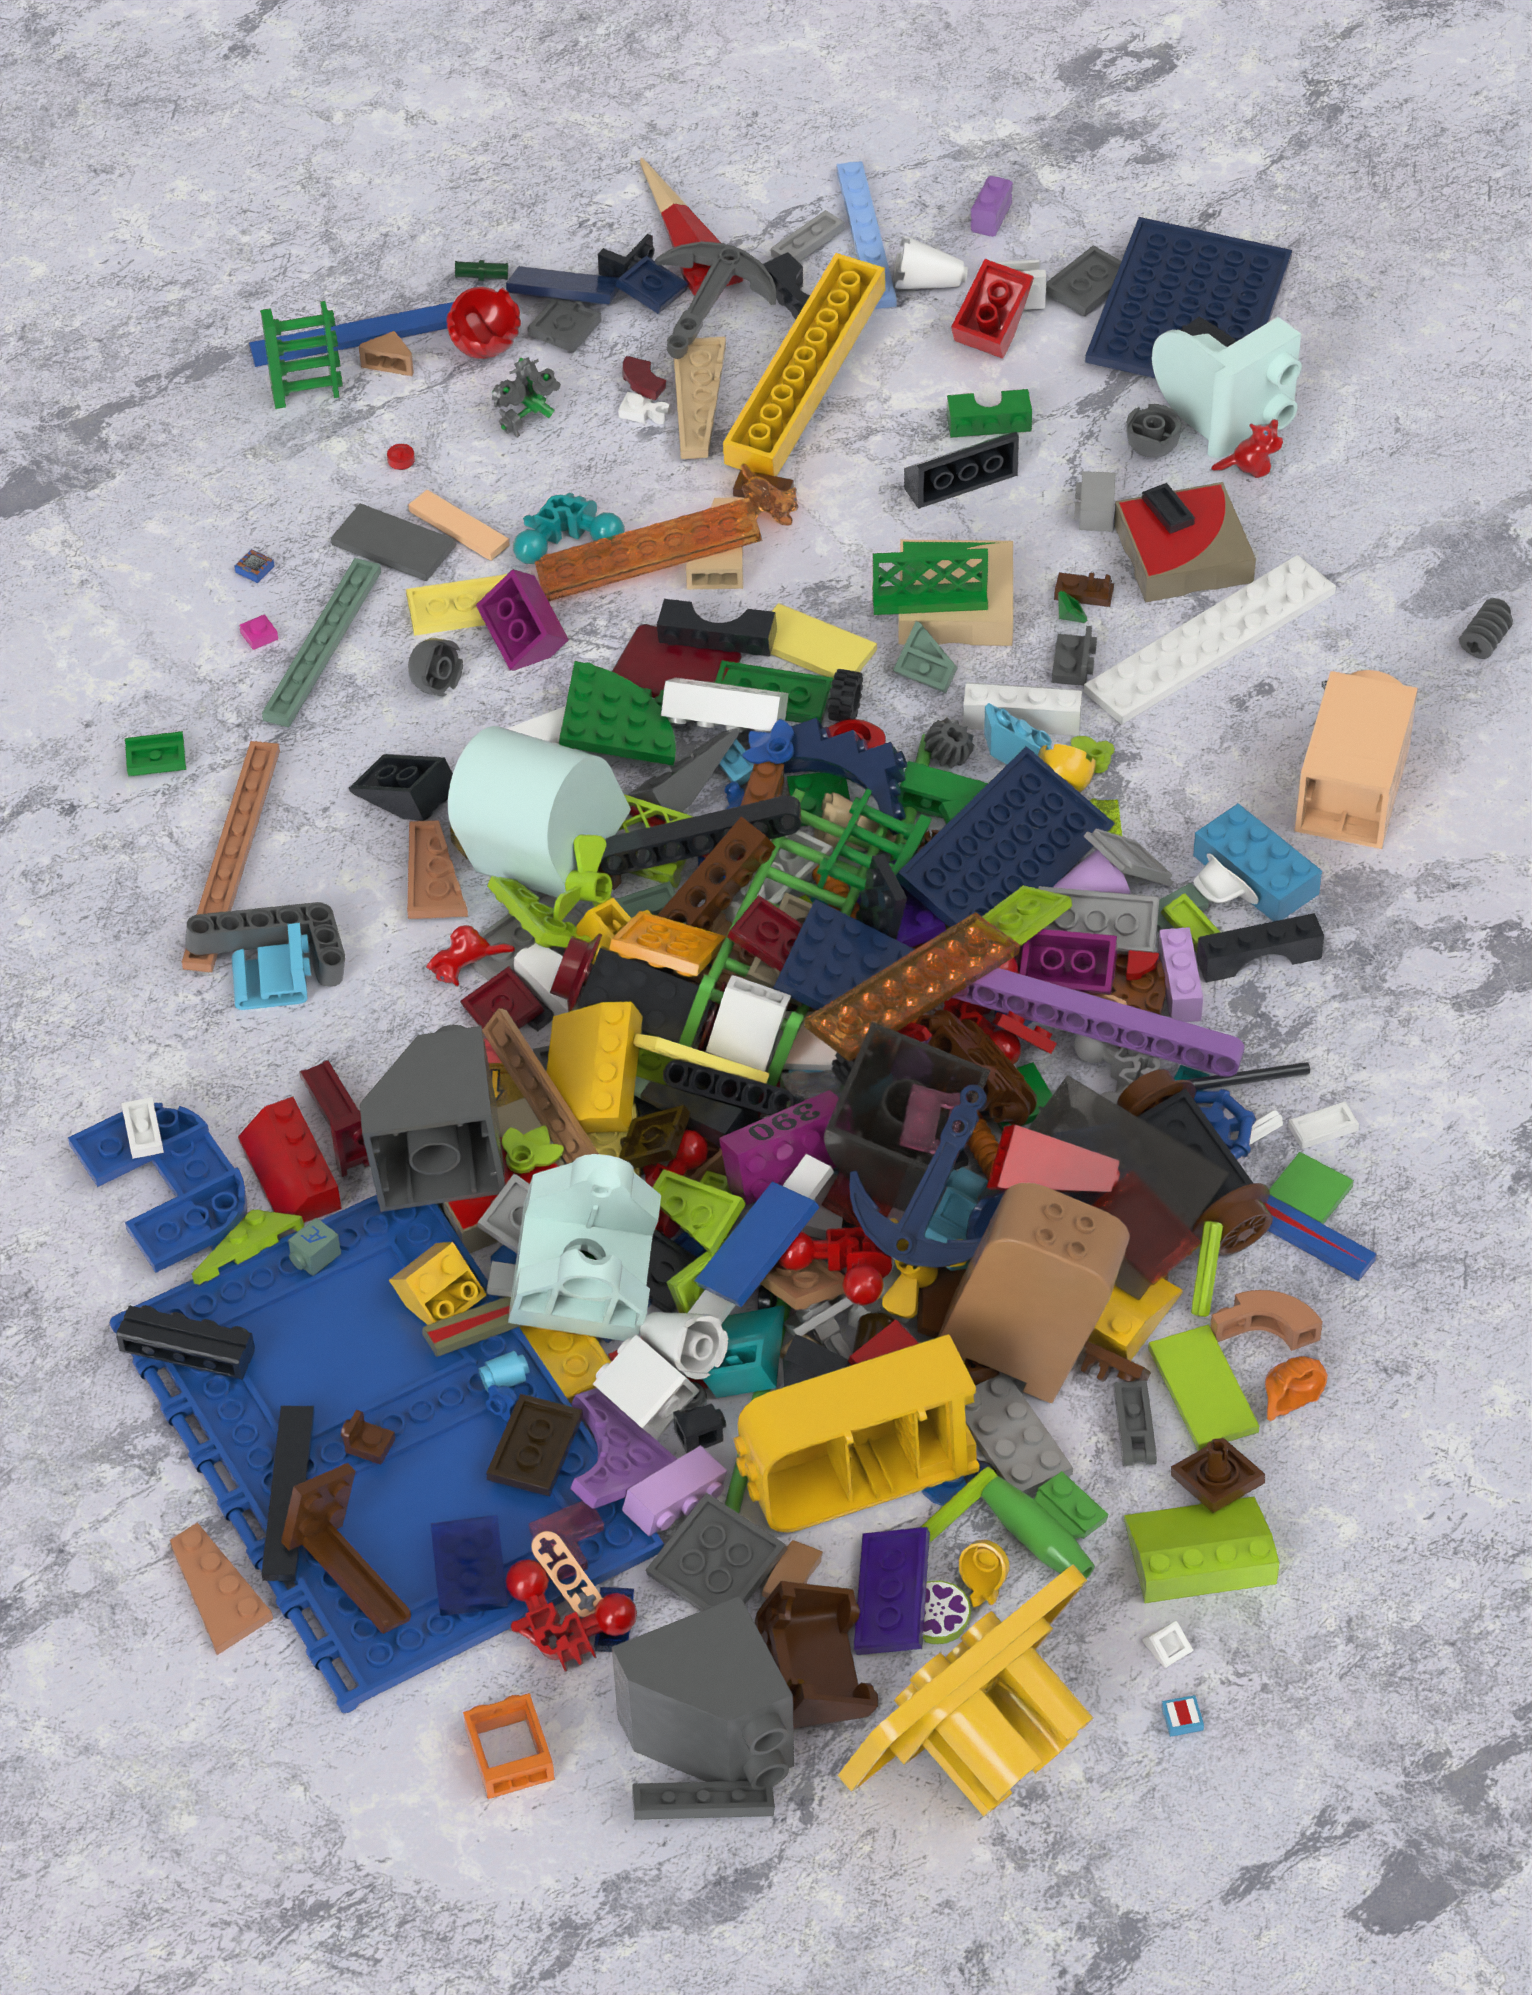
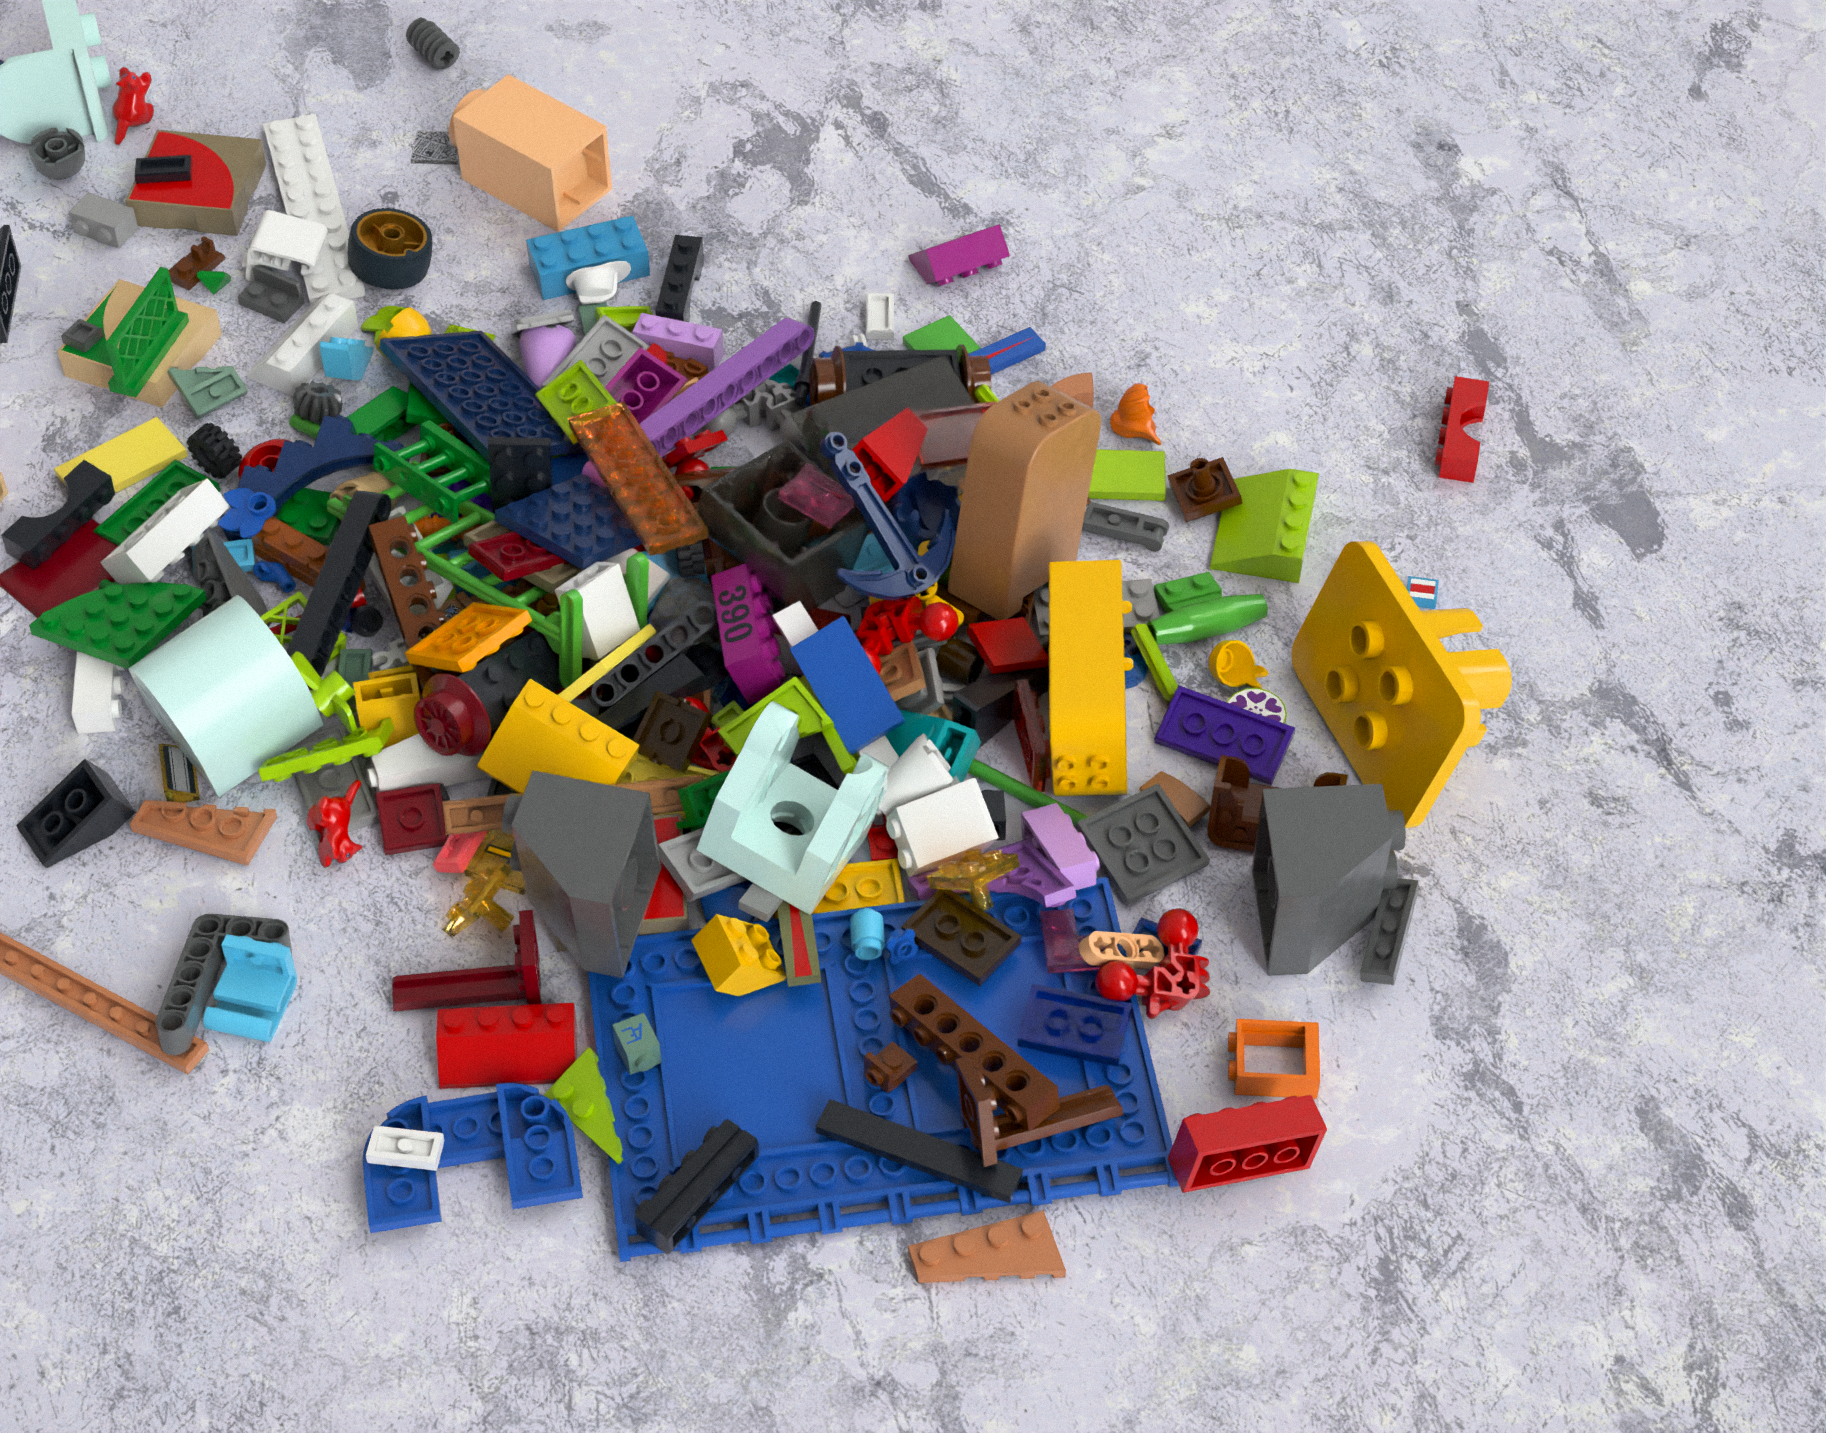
camera: 70 degrees left, 0 degrees up
(383, 1736) = (1246, 1143): none -> red brick
(394, 1490) = (953, 1034): none -> reddish brown brick
(594, 1424) = (973, 874): none -> clear yellow plate
(924, 542) = (82, 335): none -> dark grey tile
(1129, 634) = (284, 239): none -> white piece
(1170, 710) = (389, 248): none -> wheel
(1444, 1159) = (961, 256): none -> magenta slope
(1482, 1680) = (1460, 451): none -> red arch

